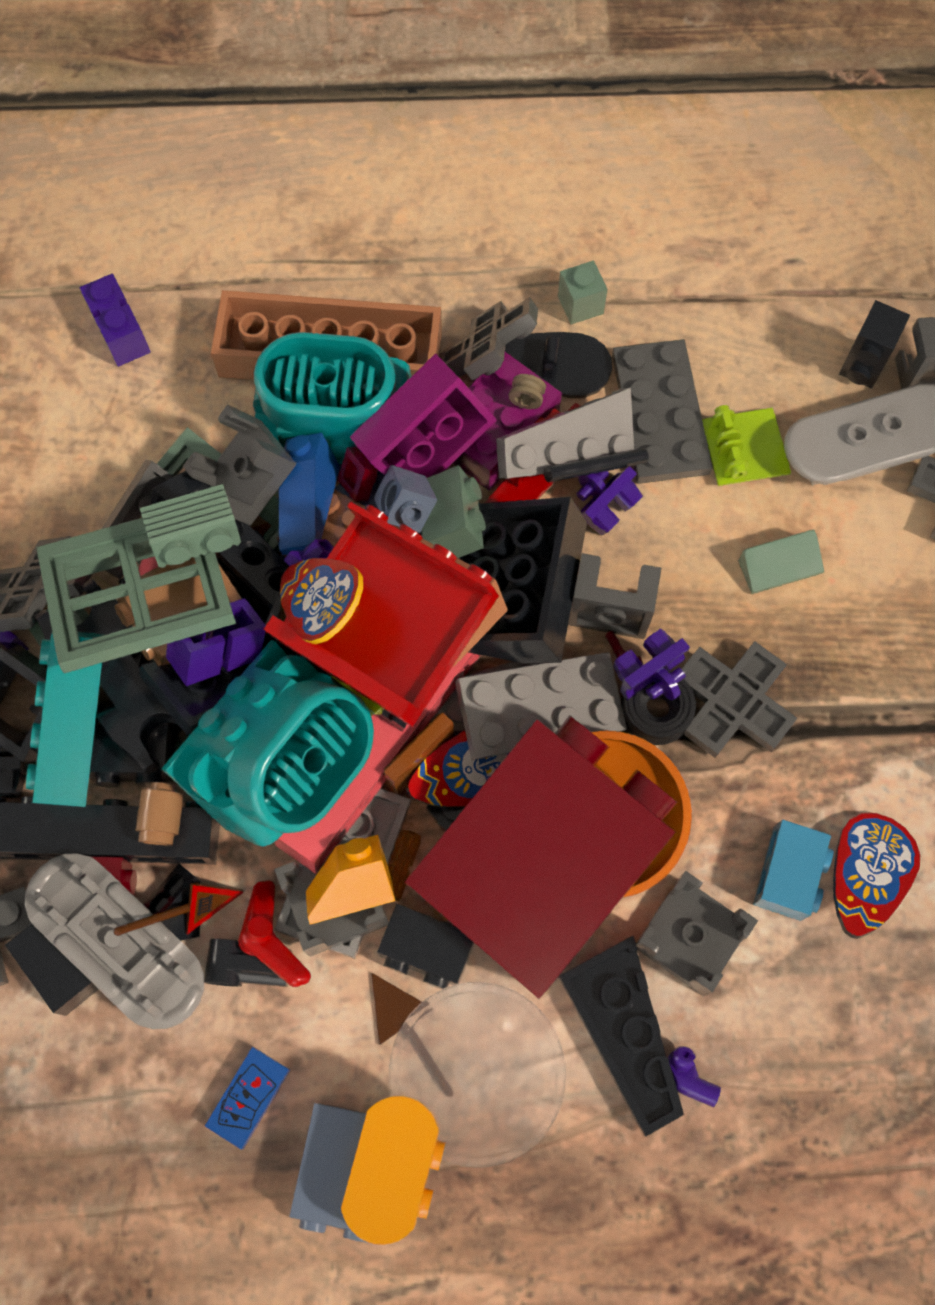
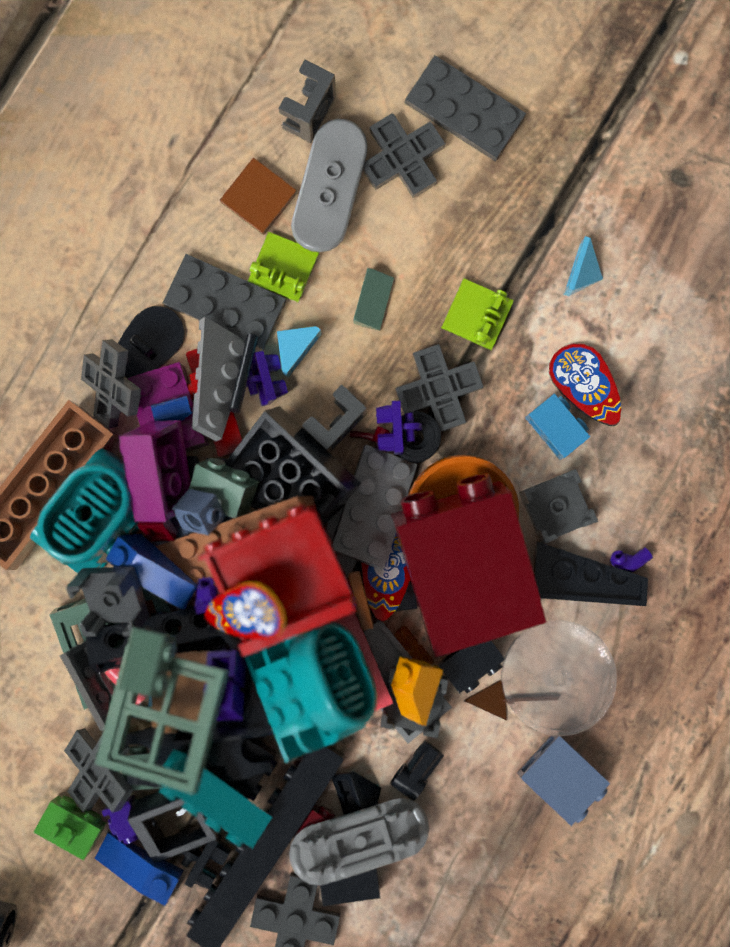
camera: 60 degrees left, 15 degrees up
(159, 814) = (303, 776): medium nougat brick -> none
(203, 904) = (367, 778): piece -> none
(247, 1098) = (490, 811): blue tile -> none
(260, 940) = (410, 756): red piece -> none
(392, 1170) = (584, 757): light orange brick -> none
(508, 415) = (172, 410): none -> blue piece
(527, 391) = (169, 386): dark tan bush -> none
(582, 292) = (110, 296): sand green brick -> none
(666, 509) = (295, 345): none -> medium azure slope
(802, 375) = (258, 196): none -> dark orange tile
(855, 691) = (477, 314): none -> lime hinge
(874, 344) = (272, 141): black brick -> none

